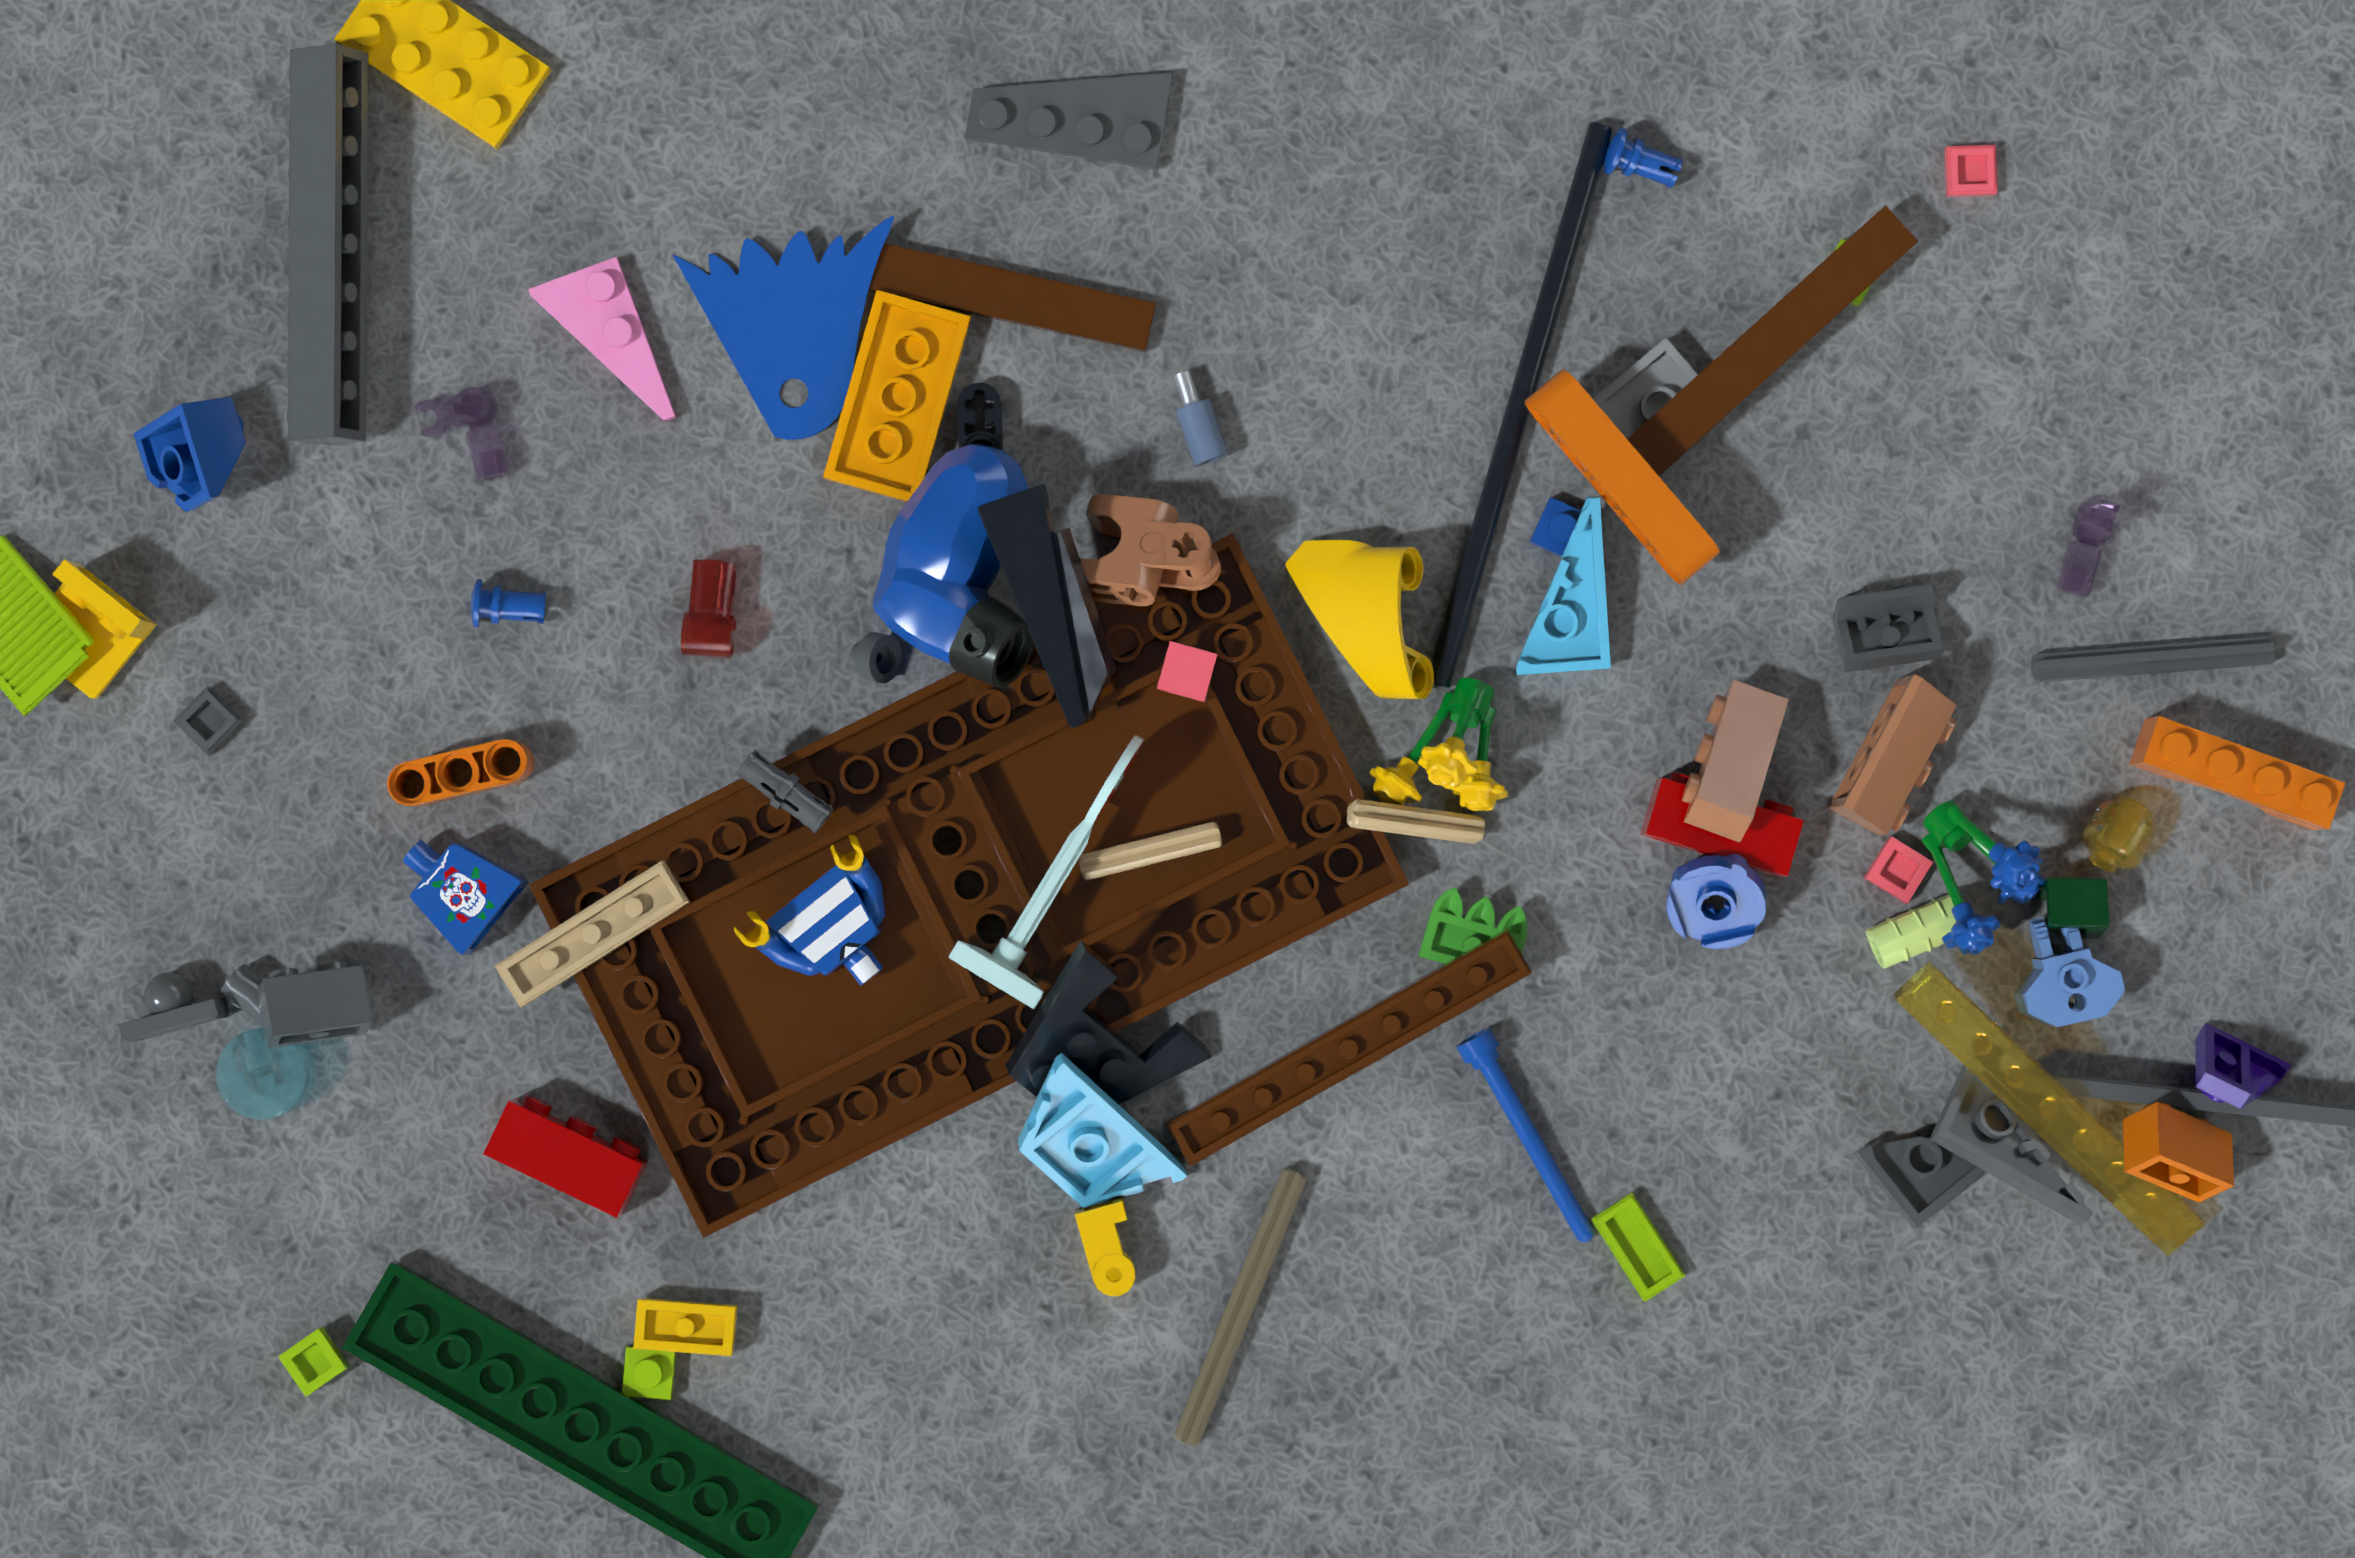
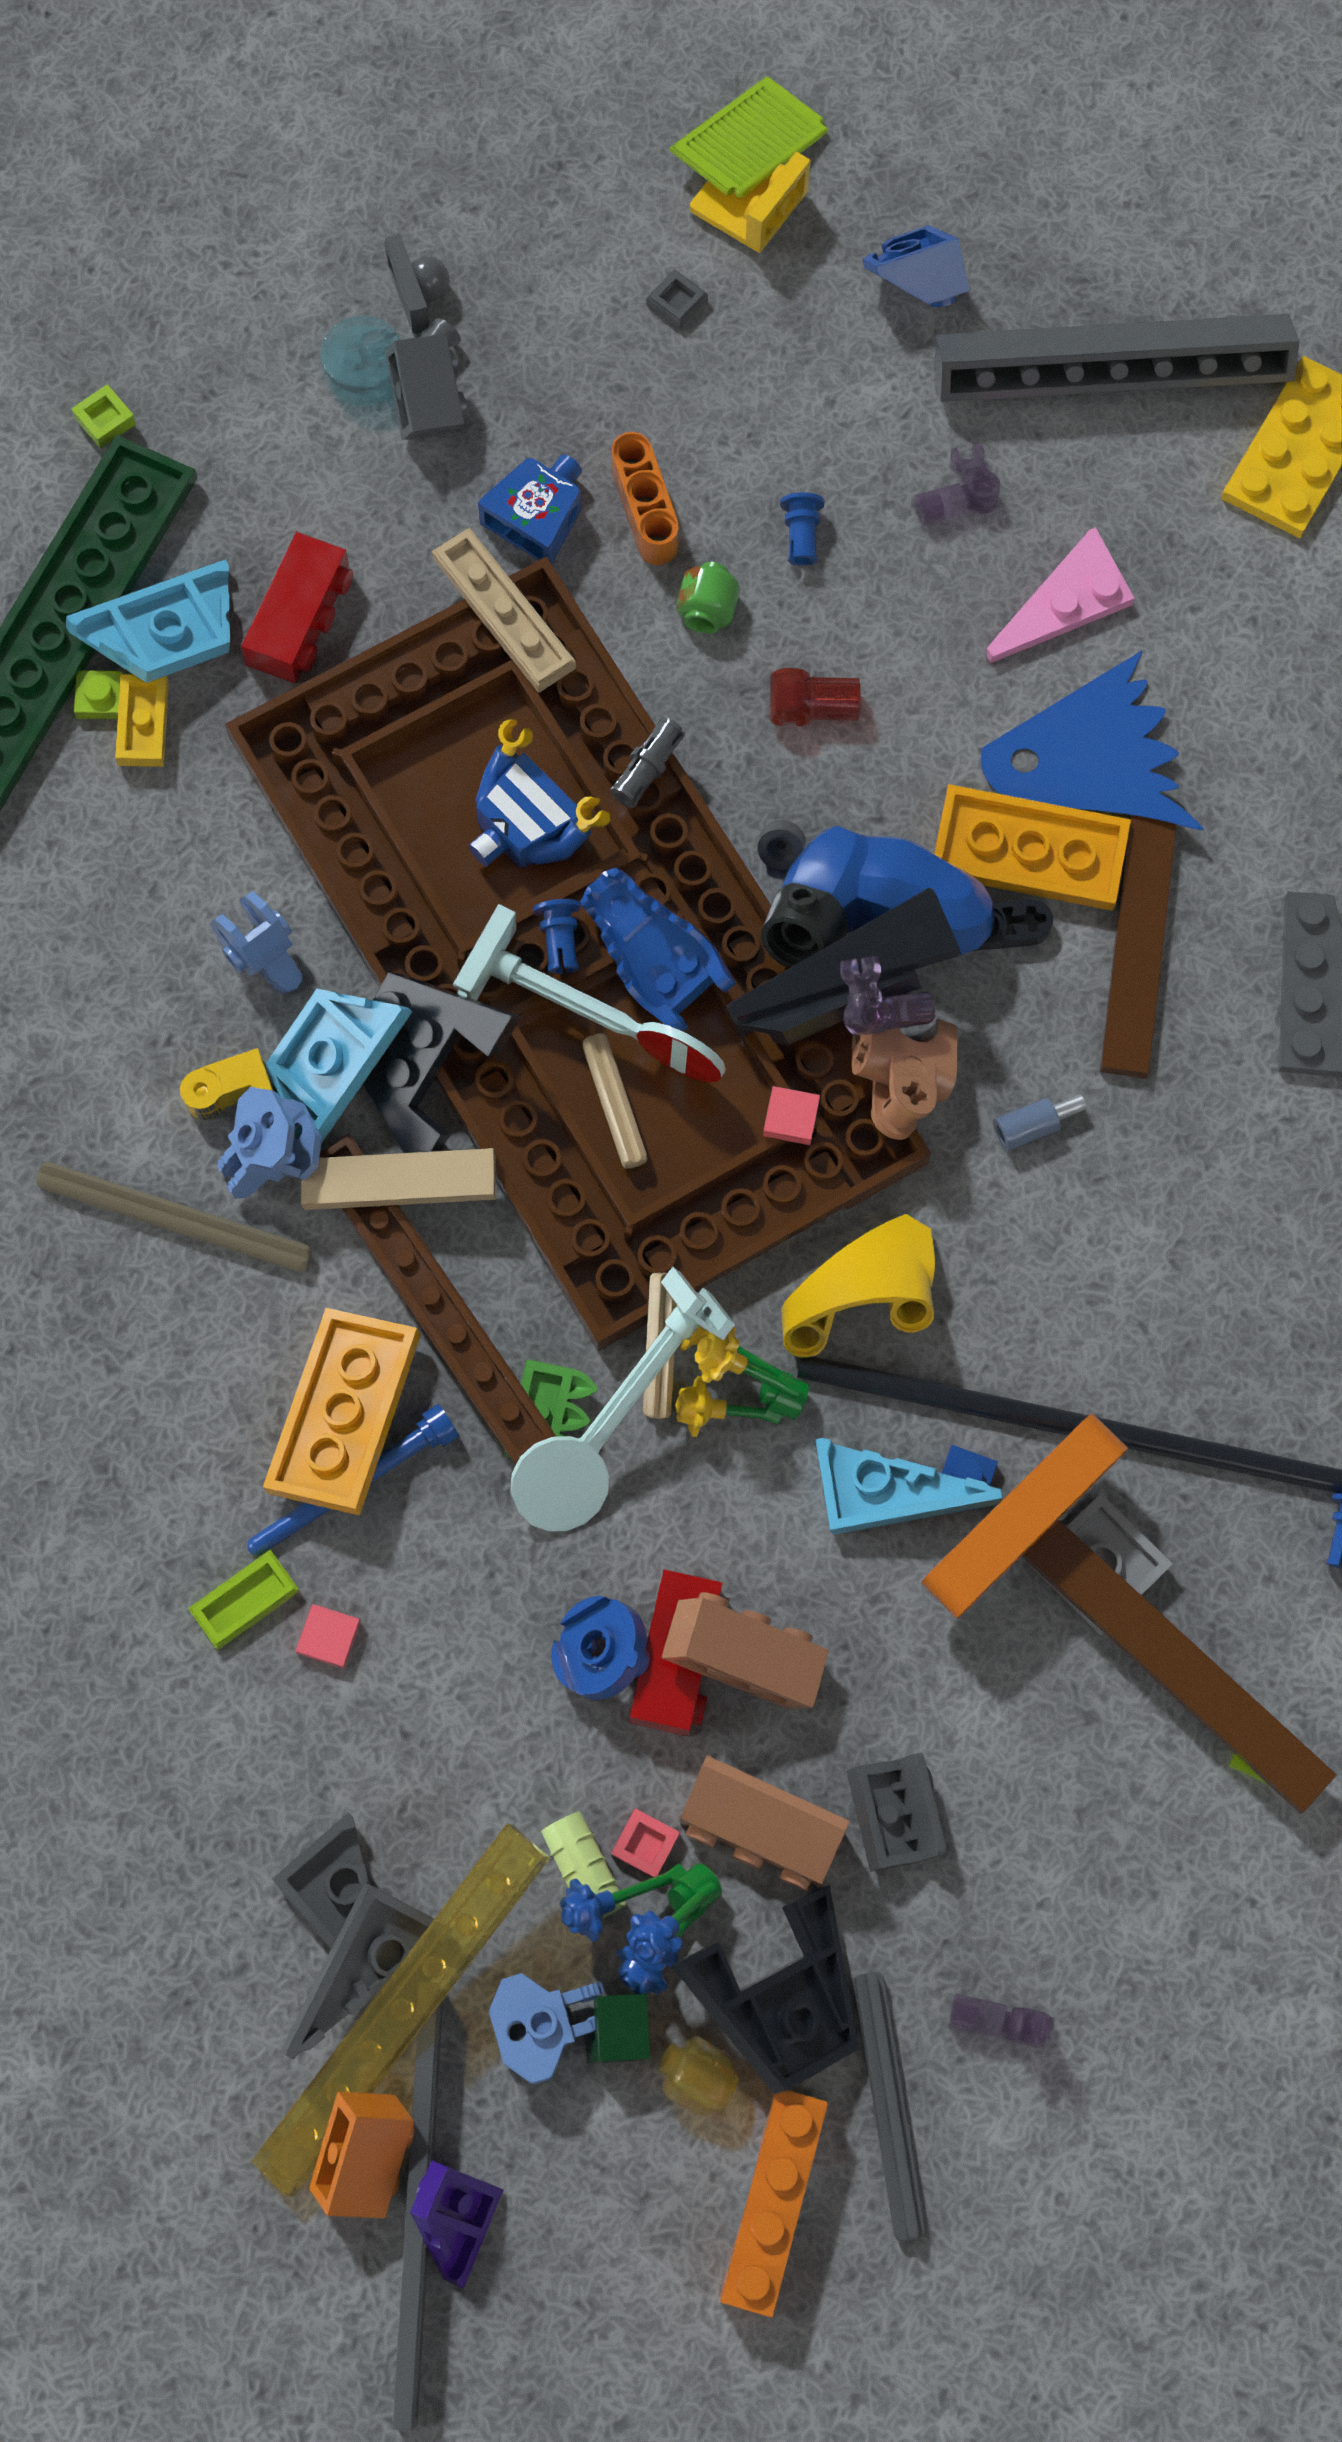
camera: 85 degrees right, 15 degrees down
(578, 1300) = (162, 625): none -> medium azure wing
(584, 713) = (708, 597): none -> bright green head
(961, 1207) = (262, 947): none -> medium blue hinge
(975, 896) = (559, 933): none -> blue pin
(1001, 799) = (655, 951): none -> blue animal
(1100, 581) = (869, 1012): none -> clear purple bar
(1176, 1207) = (266, 1144): none -> medium blue hinge
(1225, 1075) = (401, 1179): none -> tan tile
(1460, 1142) = (342, 1411): none -> light orange plate
(1543, 919) = (564, 1477): none -> light aqua piece
(1679, 1165) = (328, 1636): none -> coral tile
(2076, 739) = (793, 2017): none -> black wing

